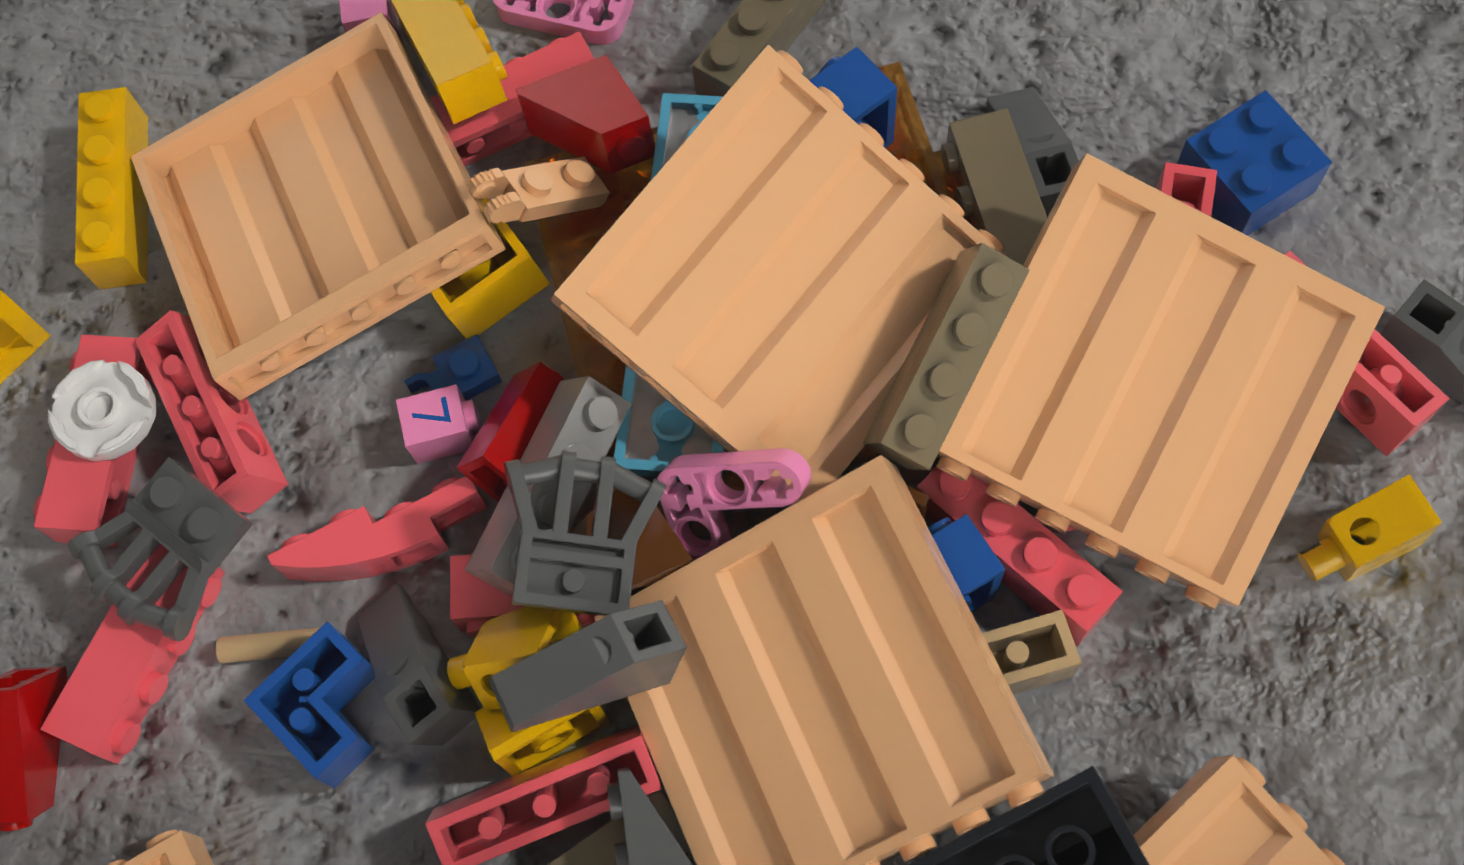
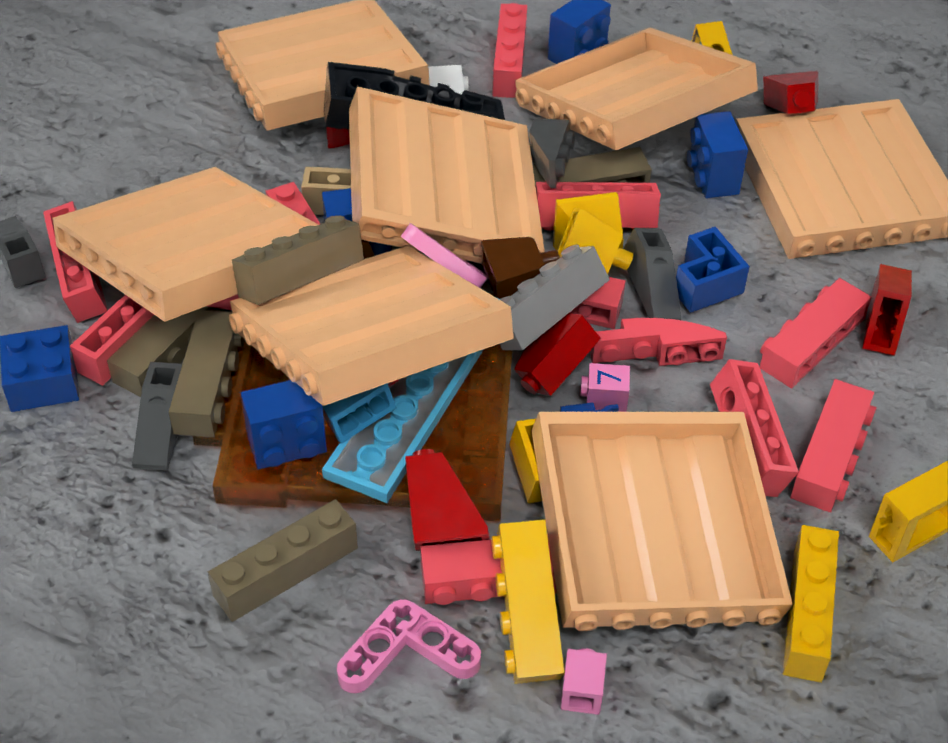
camera: 170 degrees left, 20 degrees down
(102, 410) = (824, 436): white tile -> none
(188, 522) = (778, 358): dark grey plate -> none
(261, 645) = (734, 319): tan piece -> none
(539, 190) = (497, 447): light nougat hinge -> none
(573, 569) = (539, 231): dark grey plate -> none
(592, 667) = (551, 194): dark grey slope -> none
(1387, 524) = (120, 177): yellow torso -> none

